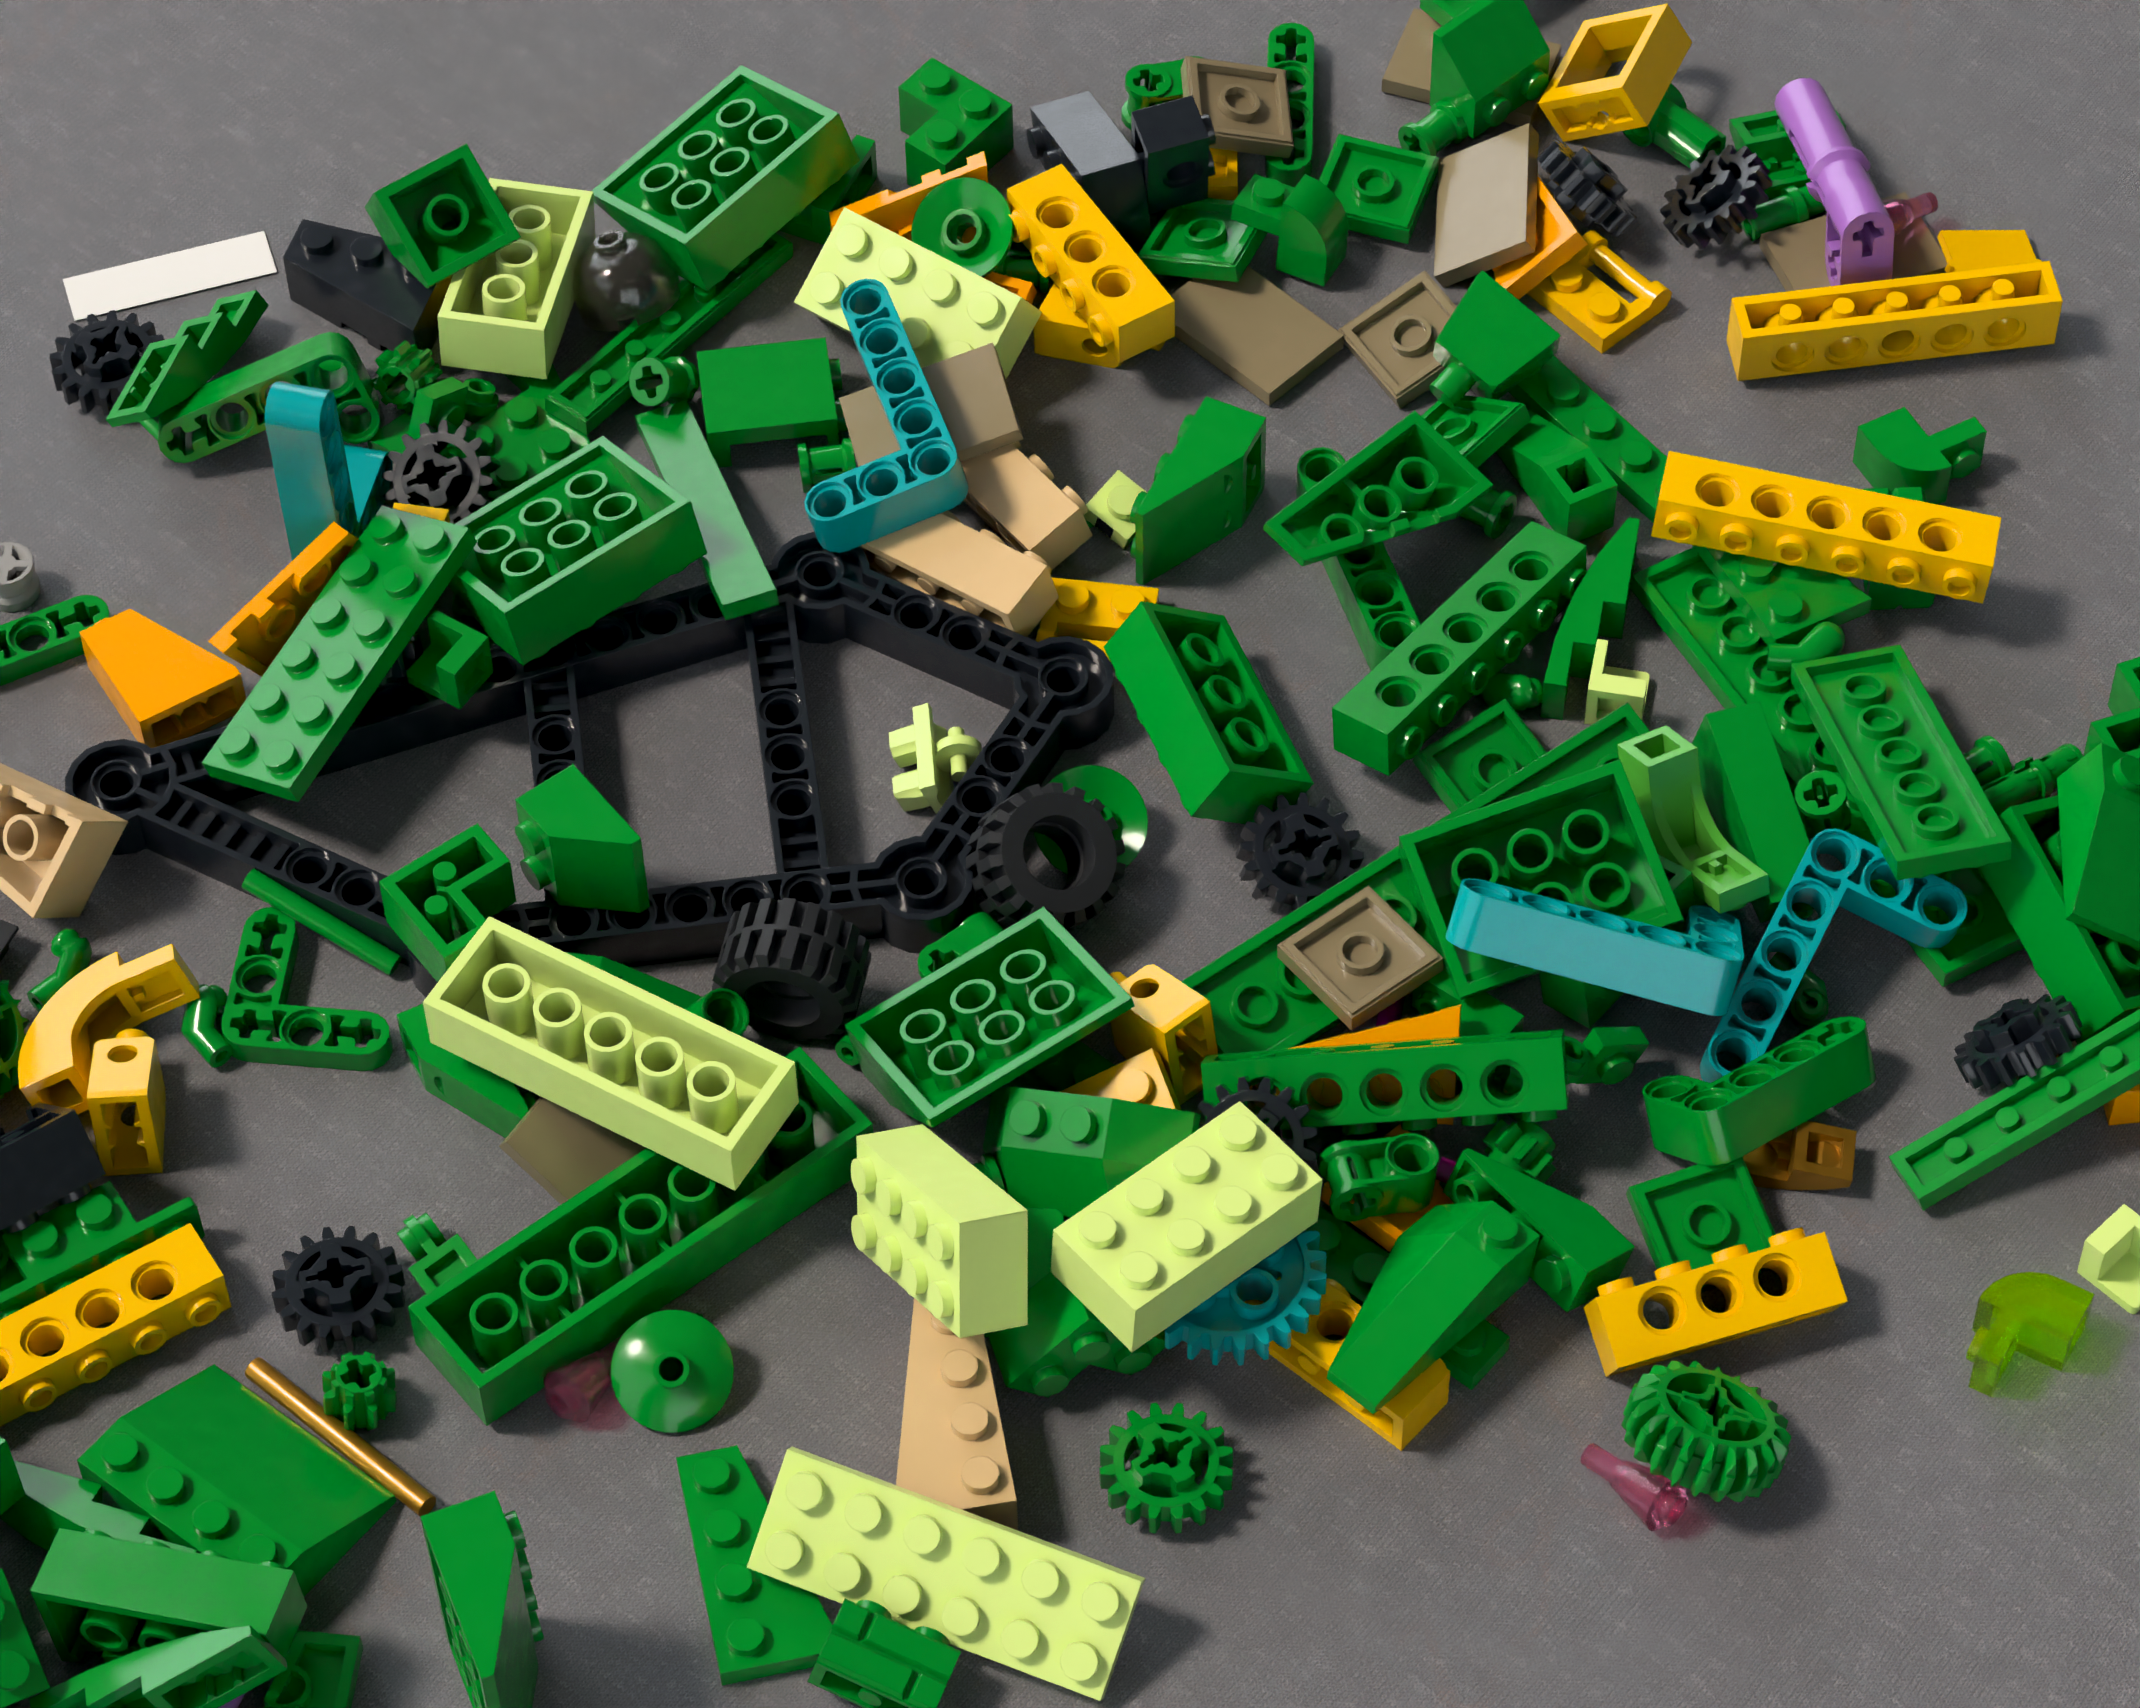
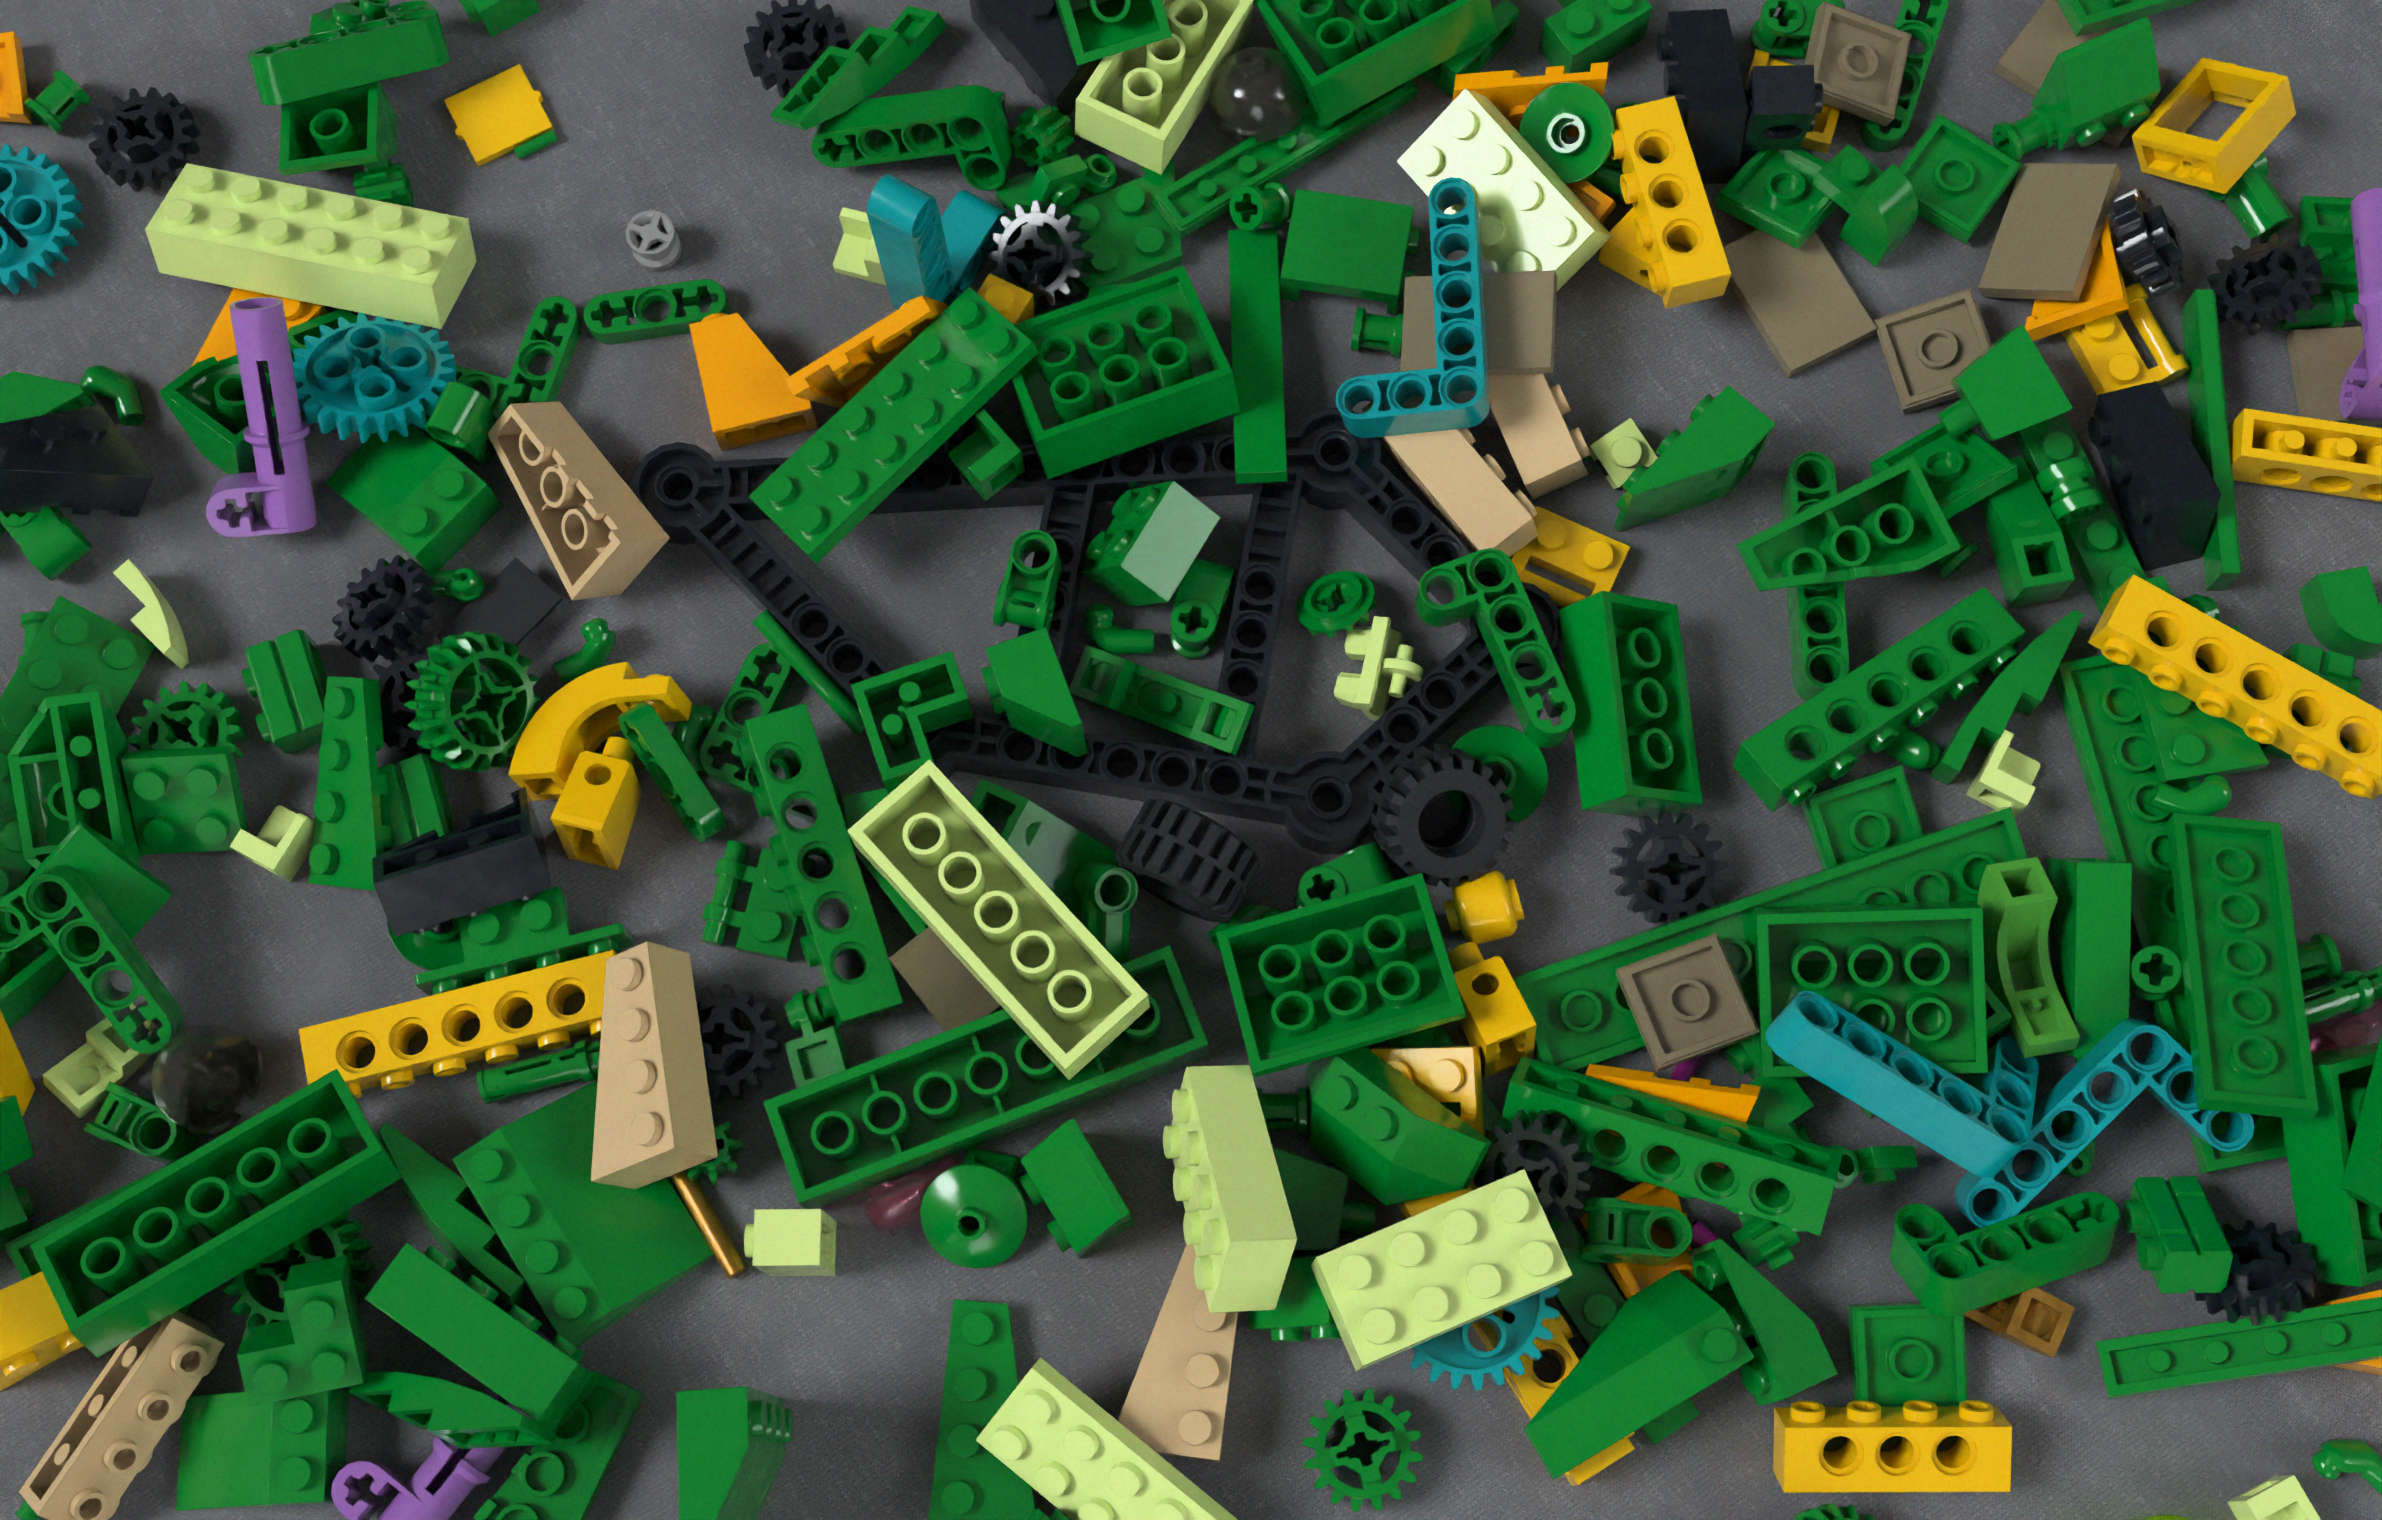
camera: 20 degrees right, 20 degrees up
(161, 1007) = (672, 771): none -> green beam
(174, 1358) = (540, 1072): none -> green pin
(247, 523) = (857, 249): none -> yellowish green panel
(275, 1317) = (651, 1071): none -> tan wedge
(351, 1153) = (767, 923): none -> green plate
(392, 1056) = (793, 736): none -> green brick
(483, 1437) = (792, 1242): none -> yellowish green brick
(532, 759) = (1029, 593): none -> green piece
(646, 810) = (1112, 637): none -> green arm
(650, 699) = (1149, 544): none -> brick
(722, 757) = (1201, 602): none -> green piece
(727, 843) = (1161, 700): none -> green slope
(778, 1305) = (1076, 1191): none -> green slope
(868, 713) = (1325, 593): none -> green gear
(1031, 646) = (1505, 648): none -> green beam
(1123, 937) = (1485, 908): none -> yellow head
(1583, 412) = (2069, 491): none -> green wheel
(1667, 384) = (2154, 475): none -> black wedge
(1713, 344) = (2211, 433): none -> green tile
(1931, 1026) = (2177, 1235): none -> green brick

